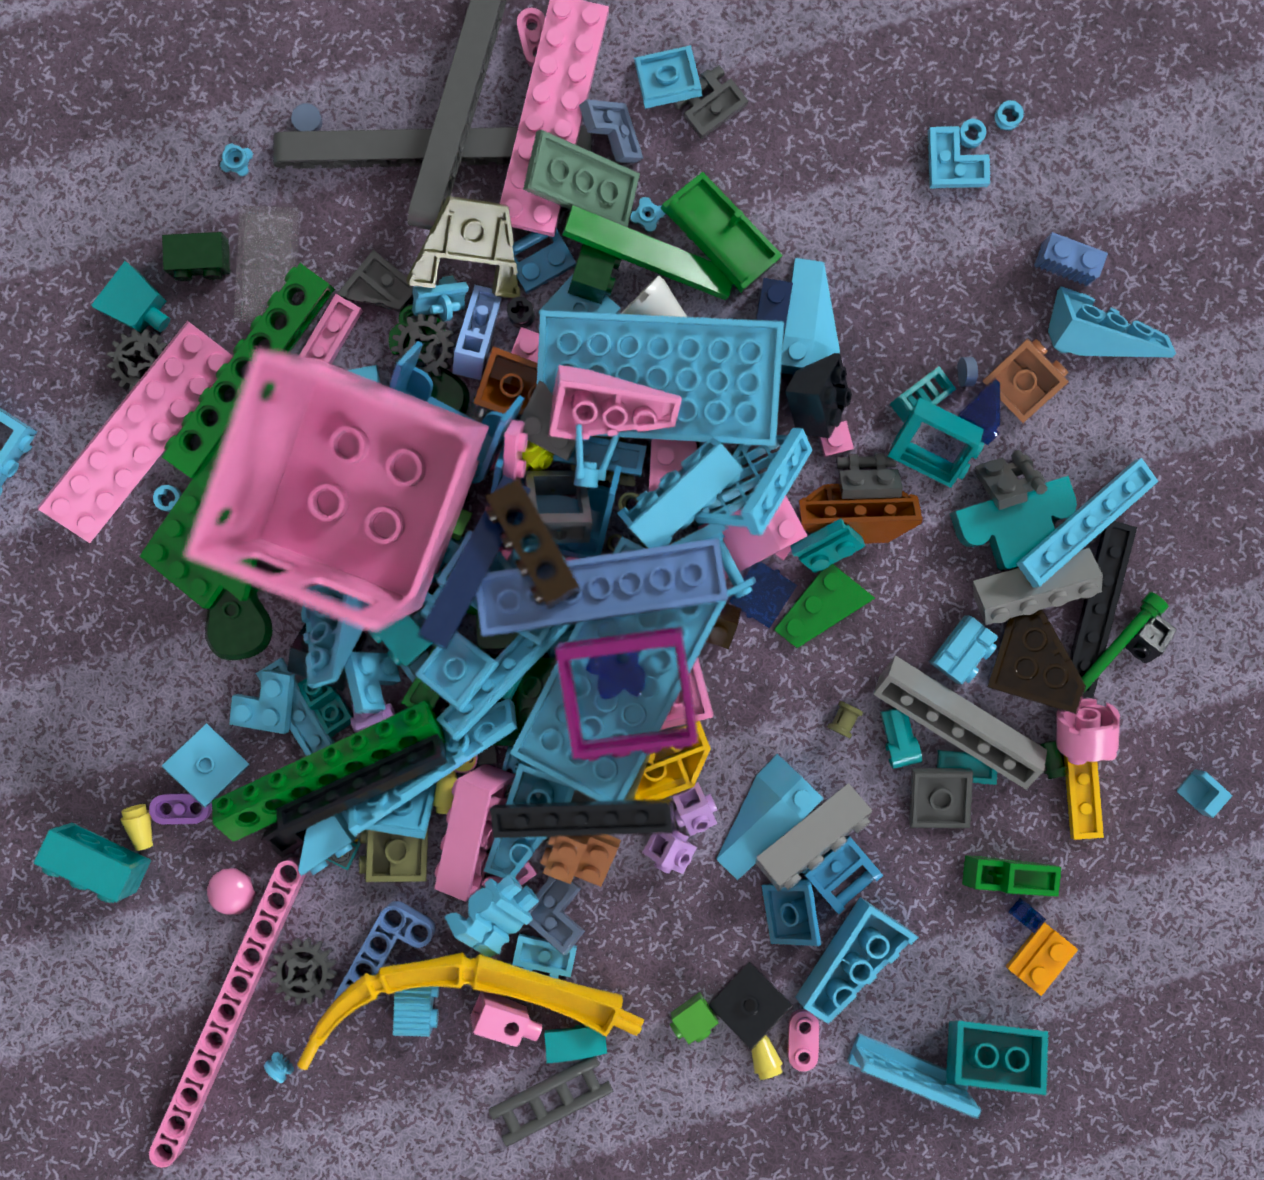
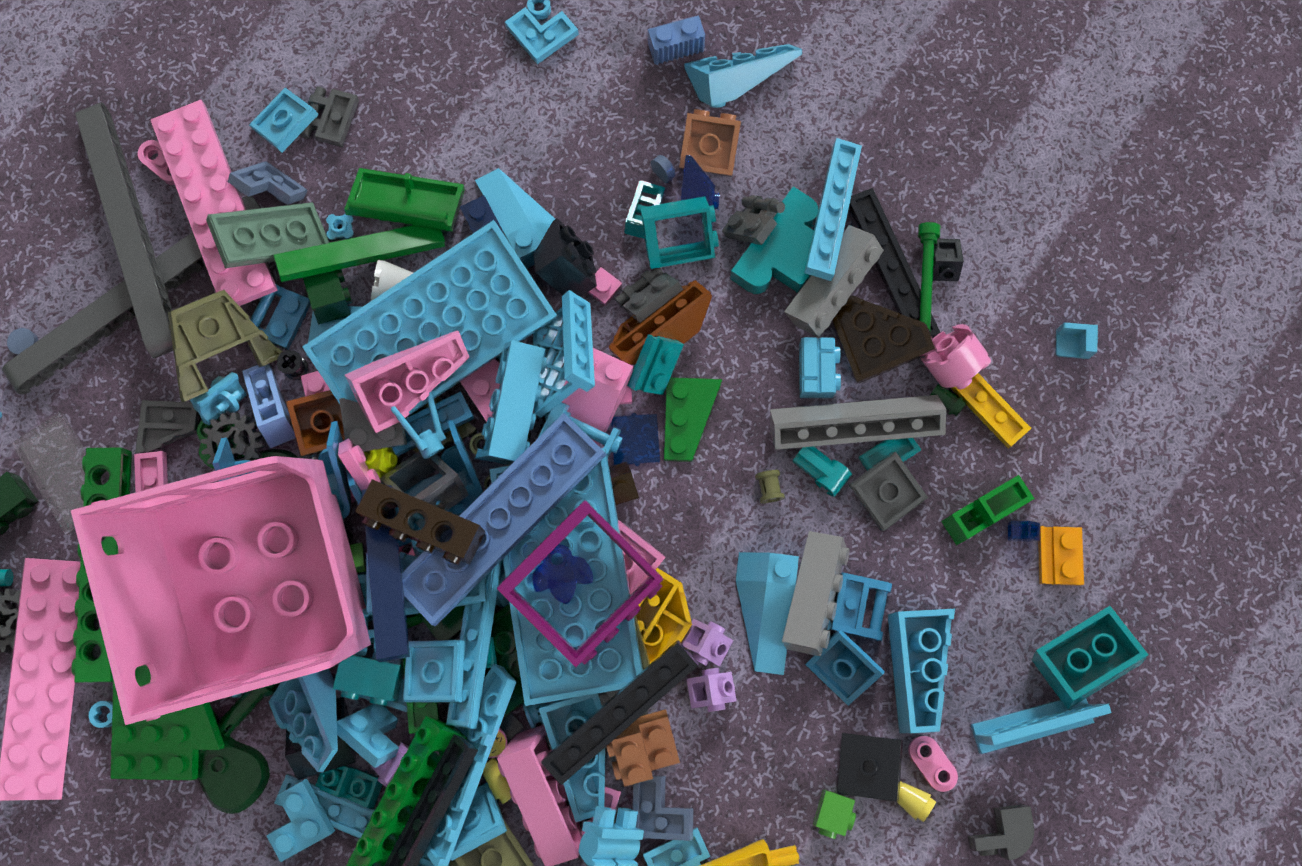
camera: 30 degrees left, 10 degrees down
(821, 1144) = (1013, 833): none -> dark grey brick

